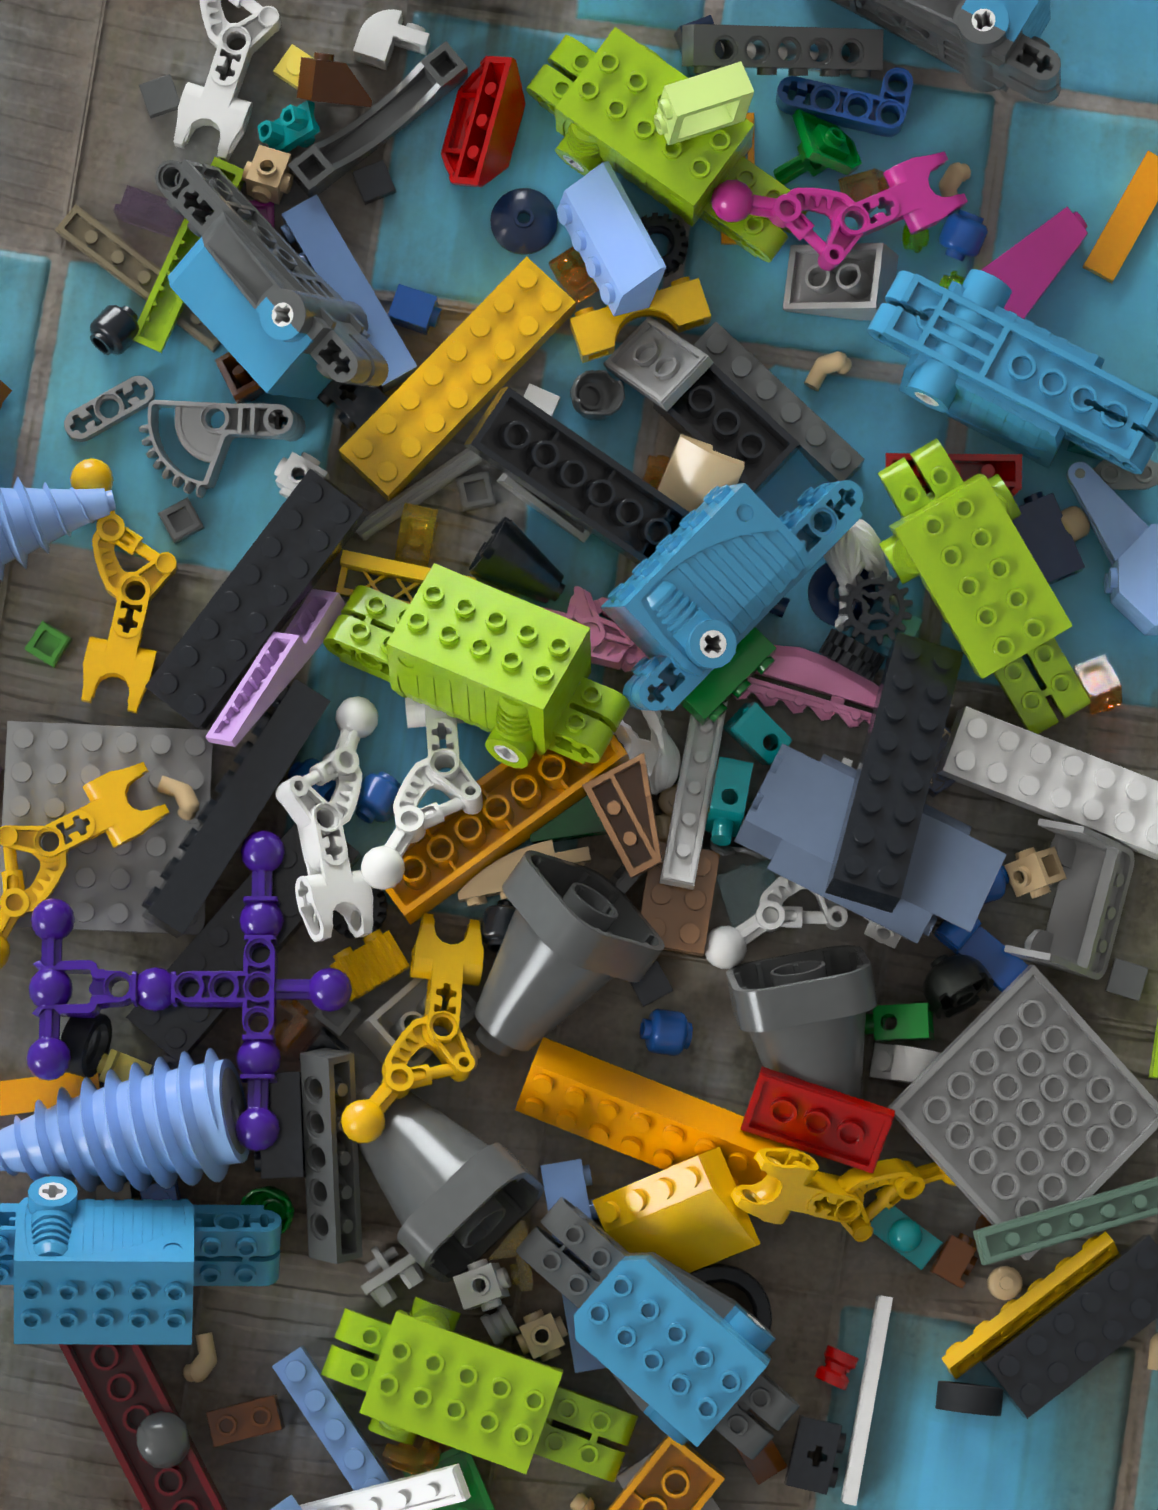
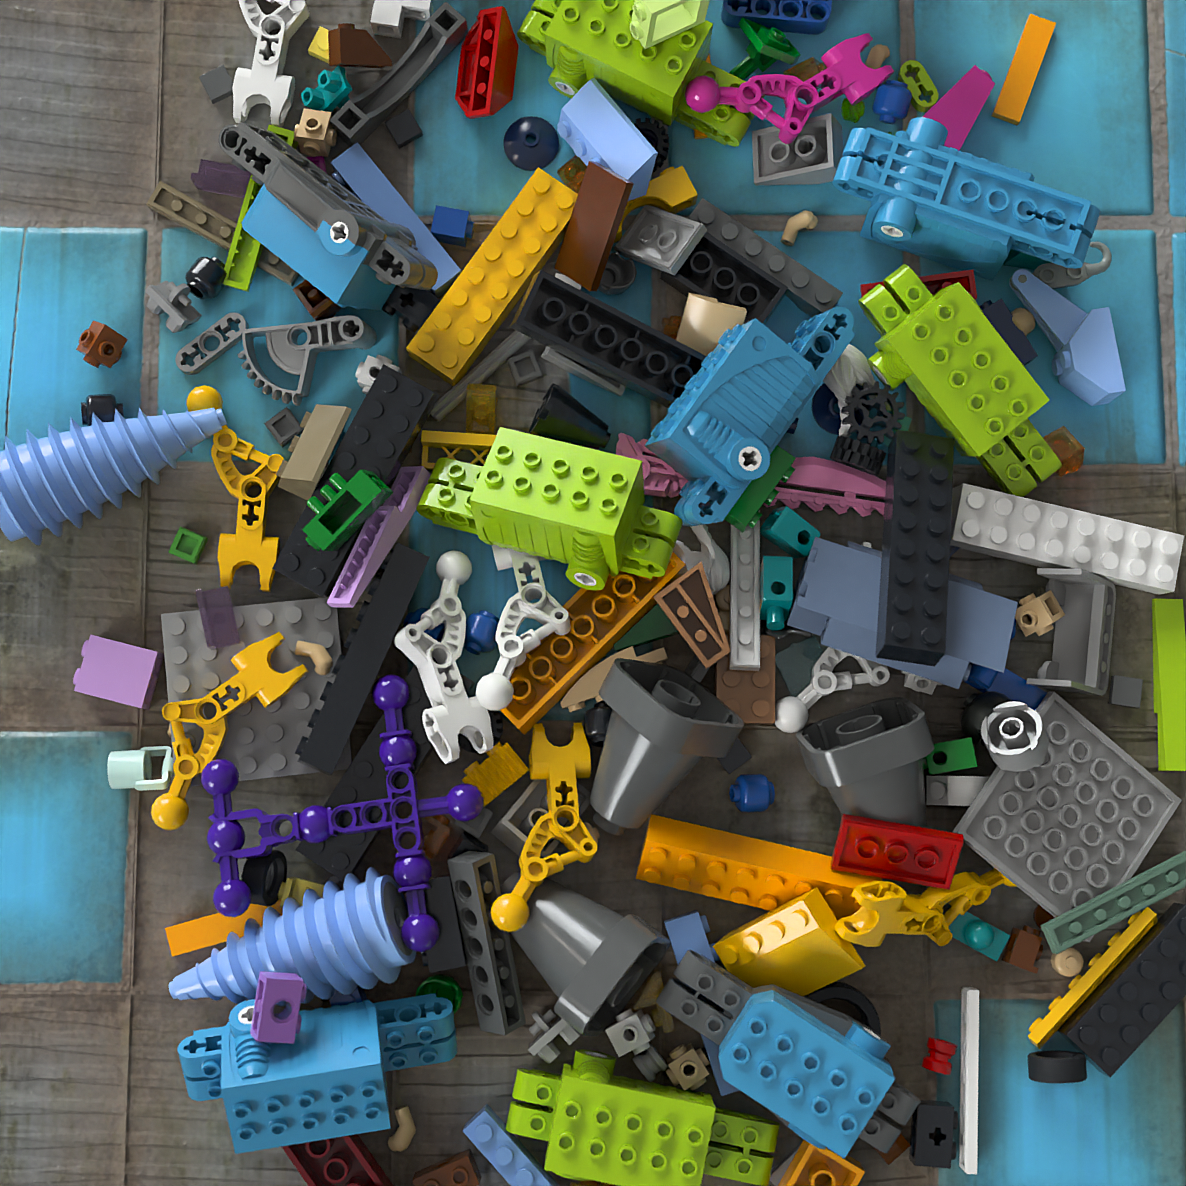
camera: 10 degrees left, 0 degrees up
(73, 354) = (174, 301): none -> light grey hips
(74, 735) = (218, 617): none -> clear purple panel
(80, 1165) = (270, 990): none -> medium lavender brick
(212, 554) = (312, 449): none -> dark tan slope
(242, 632) = (344, 509): none -> green piece
(580, 338) = (593, 225): none -> reddish brown tile
(974, 1008) = (1015, 737): none -> light grey brick
(1005, 216) = (922, 82): none -> lime beam

